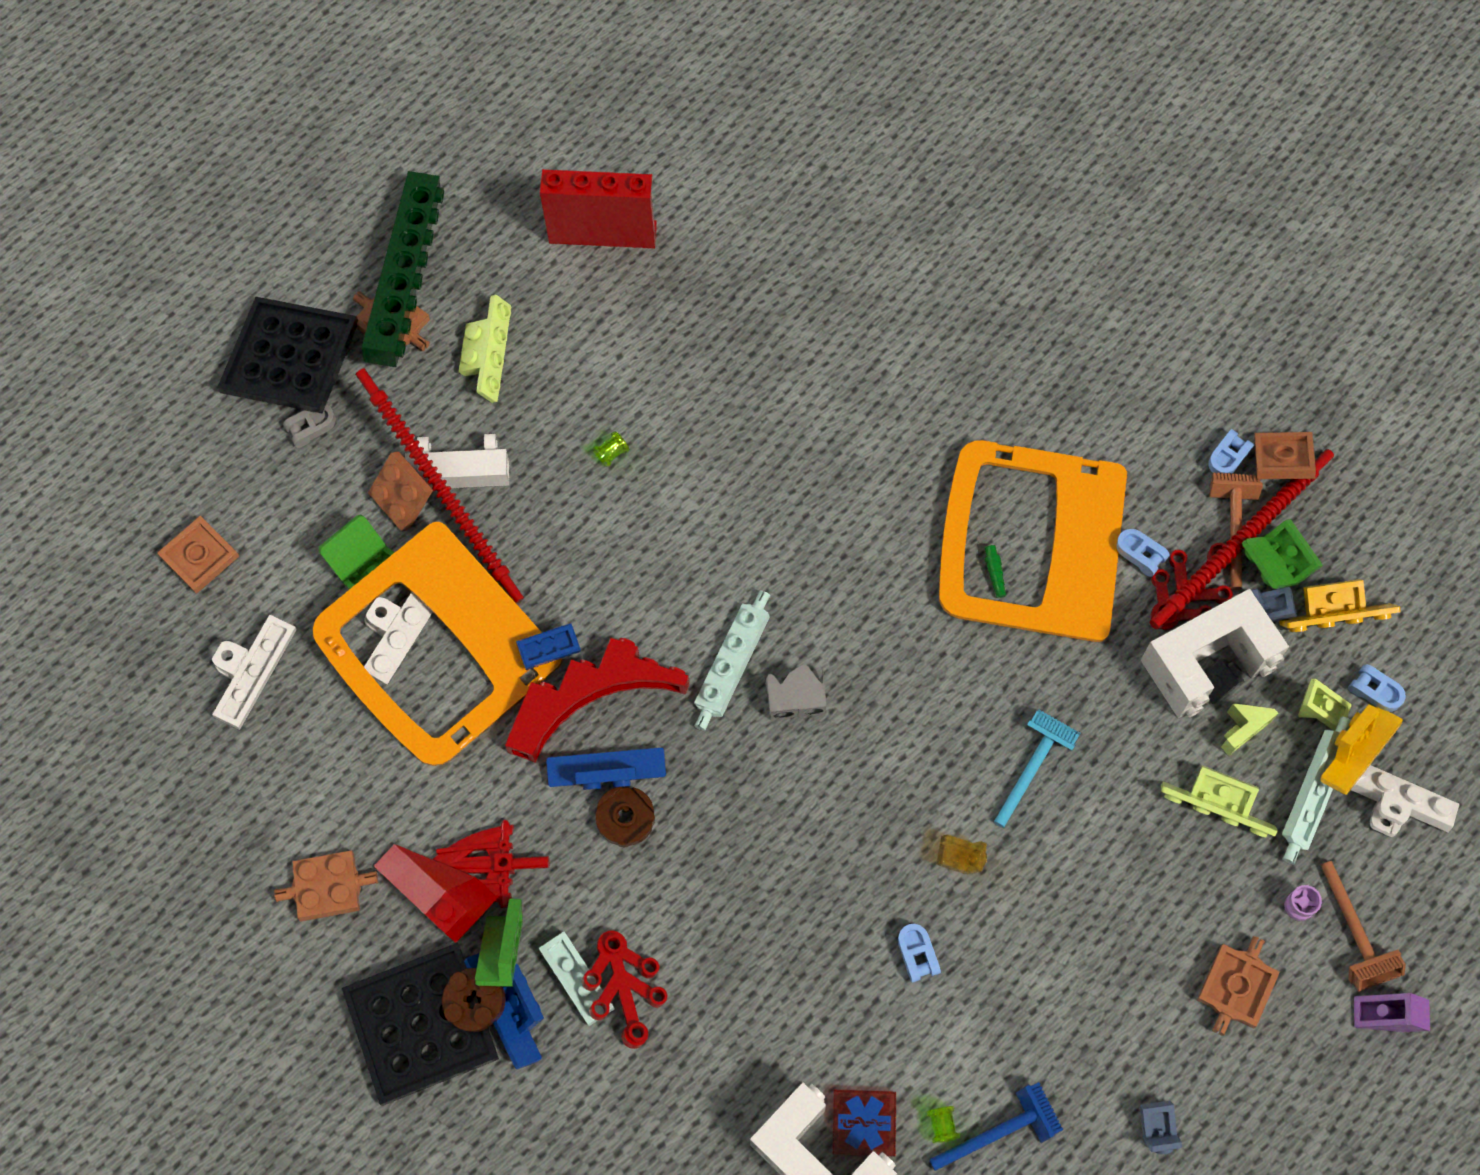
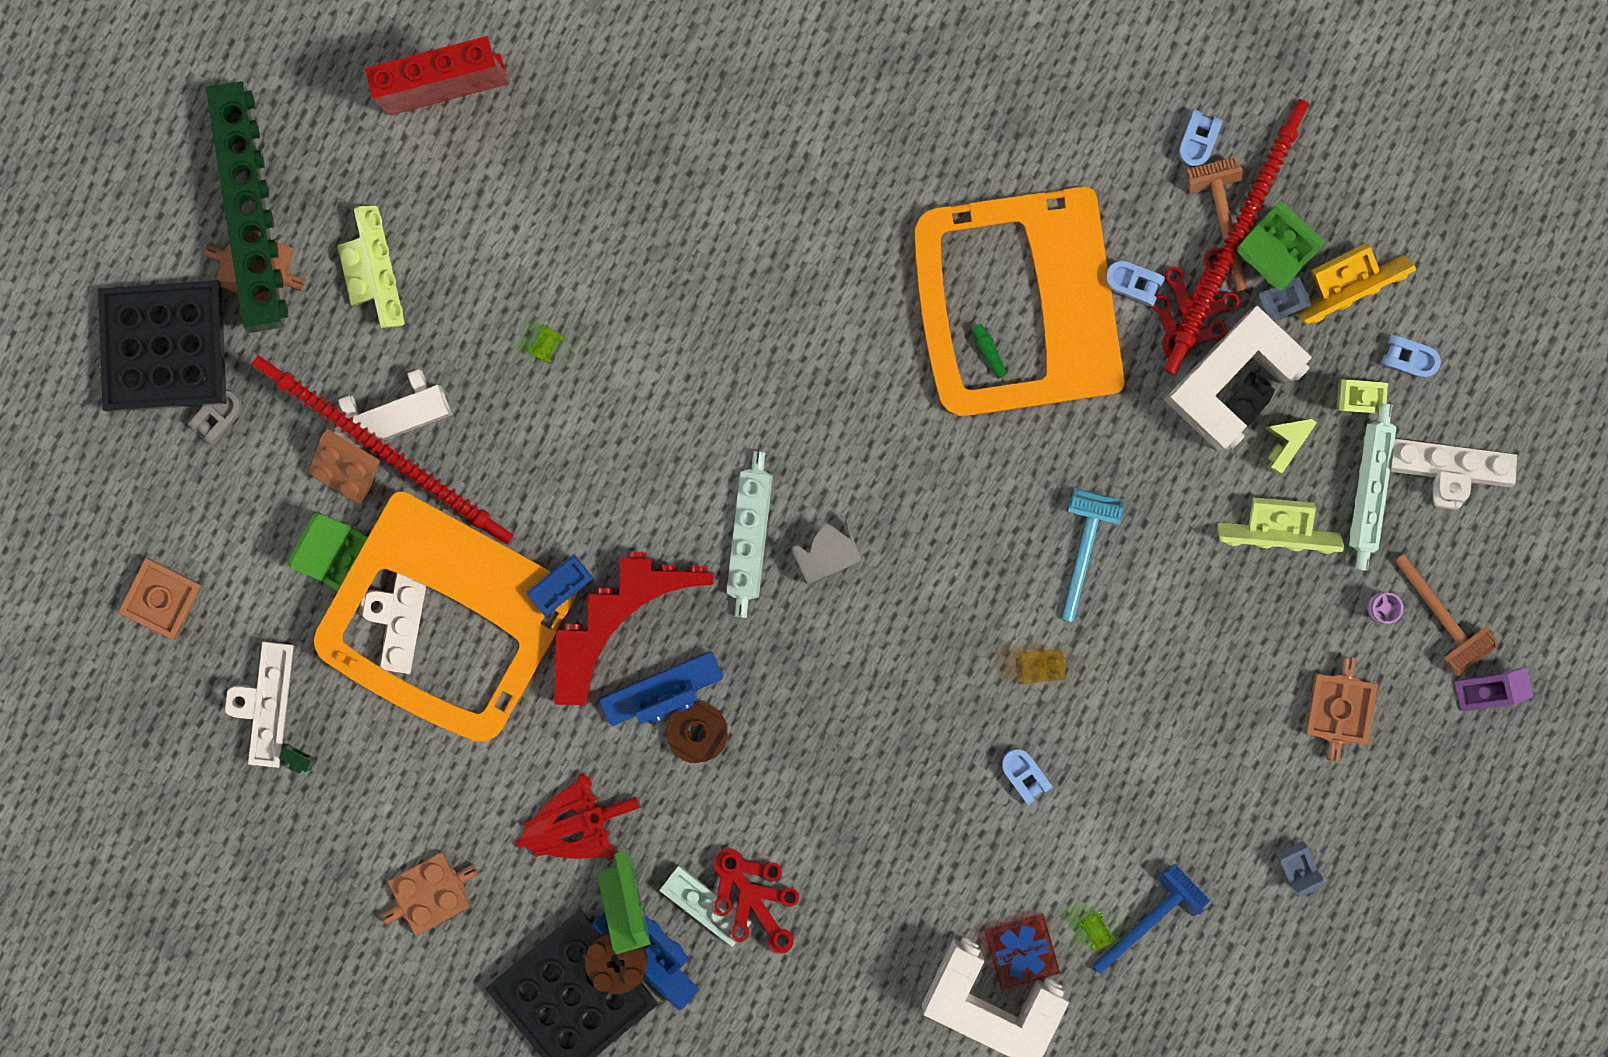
camera: 20 degrees left, 20 degrees up
(256, 725) = (296, 759): none -> dark green plate
(439, 891) = (542, 868): red wedge -> none
(1285, 455) = (1257, 126): nougat plate -> none
(1359, 747) = (1407, 432): yellow bracket -> none

